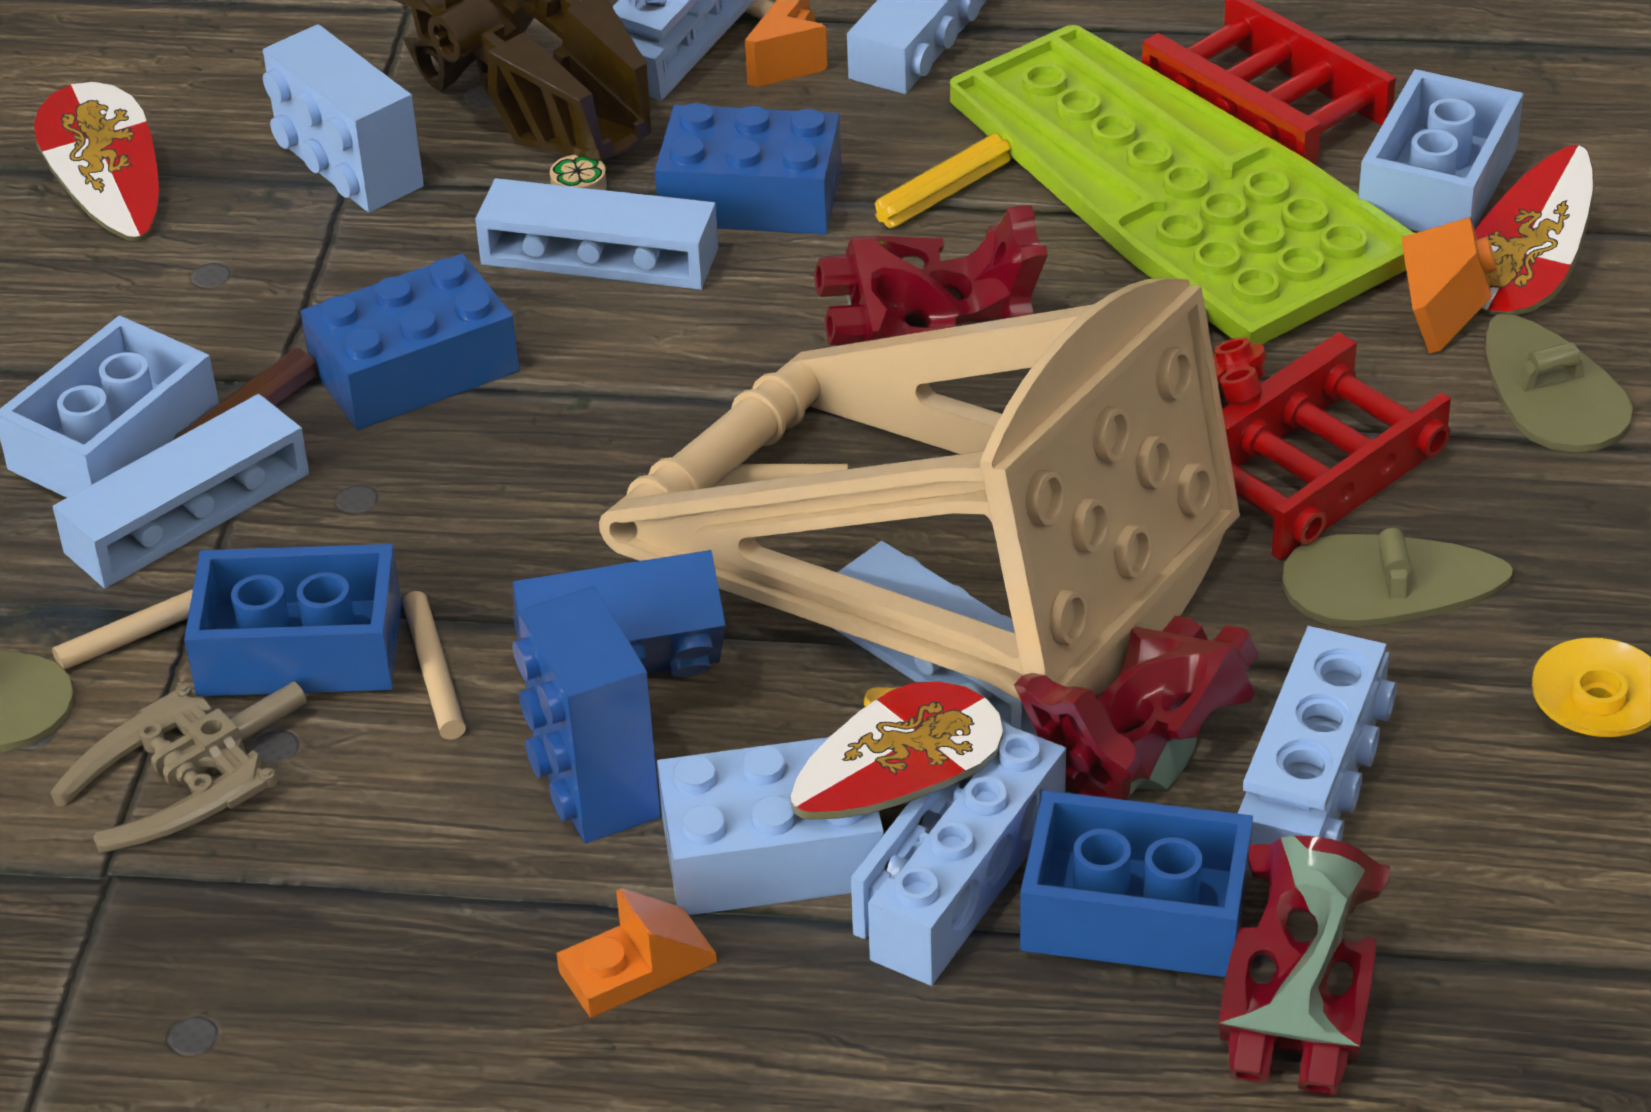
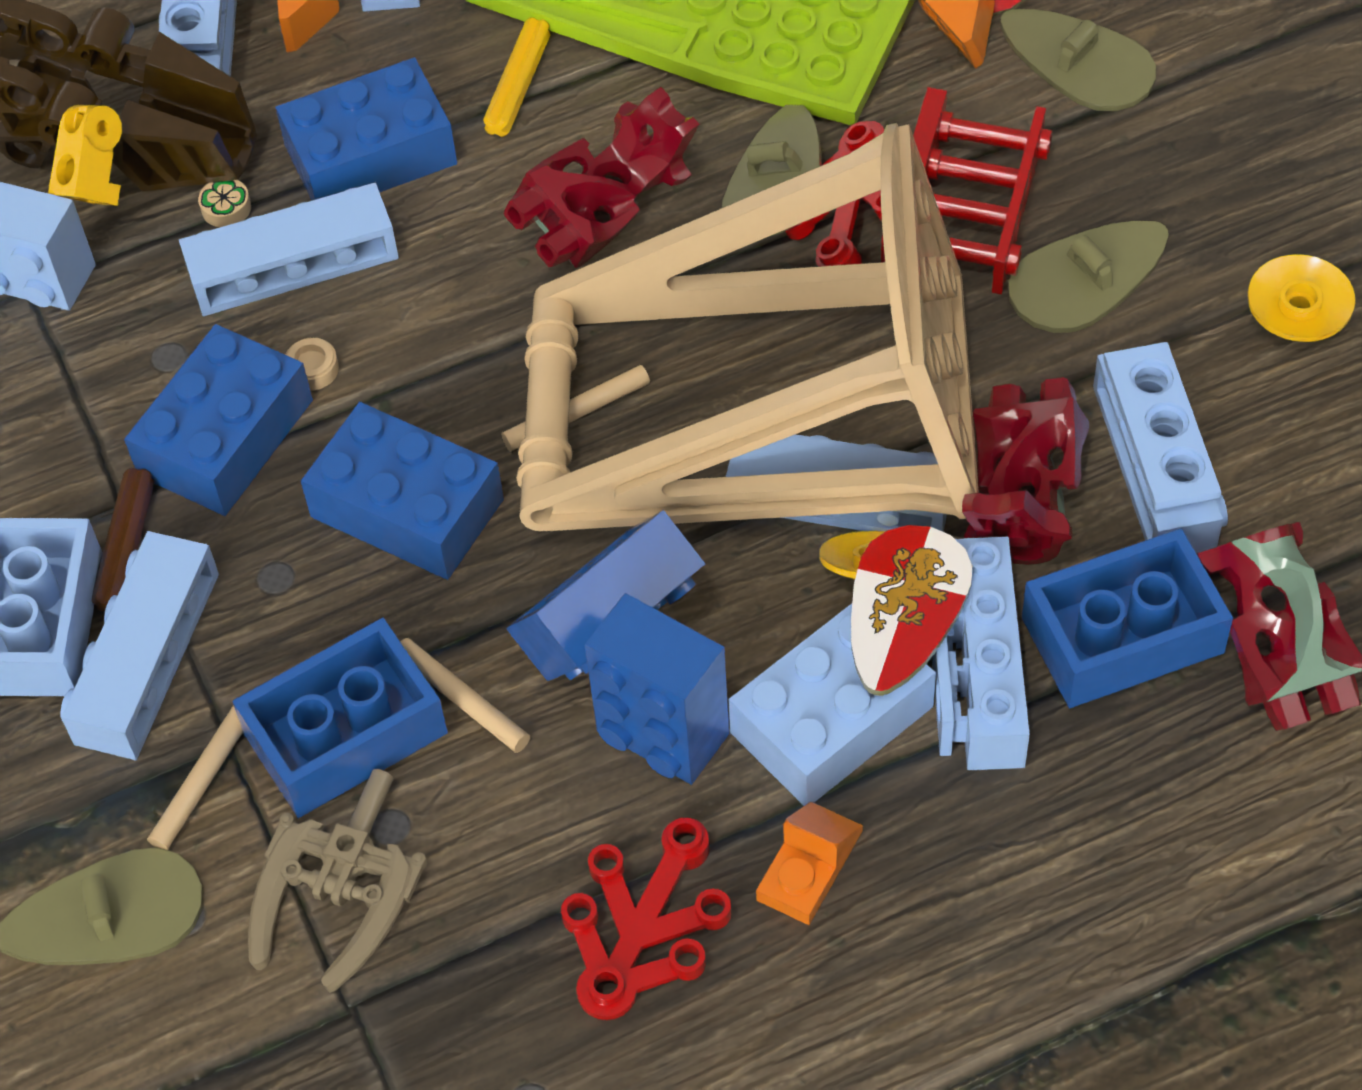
camera: 30 degrees left, 15 degrees up
(353, 964) = (642, 925): none -> red plant
(447, 61) = (86, 155): none -> yellow leg
(522, 466) = (403, 490): none -> blue brick
(542, 338) = (318, 359): none -> tan tile

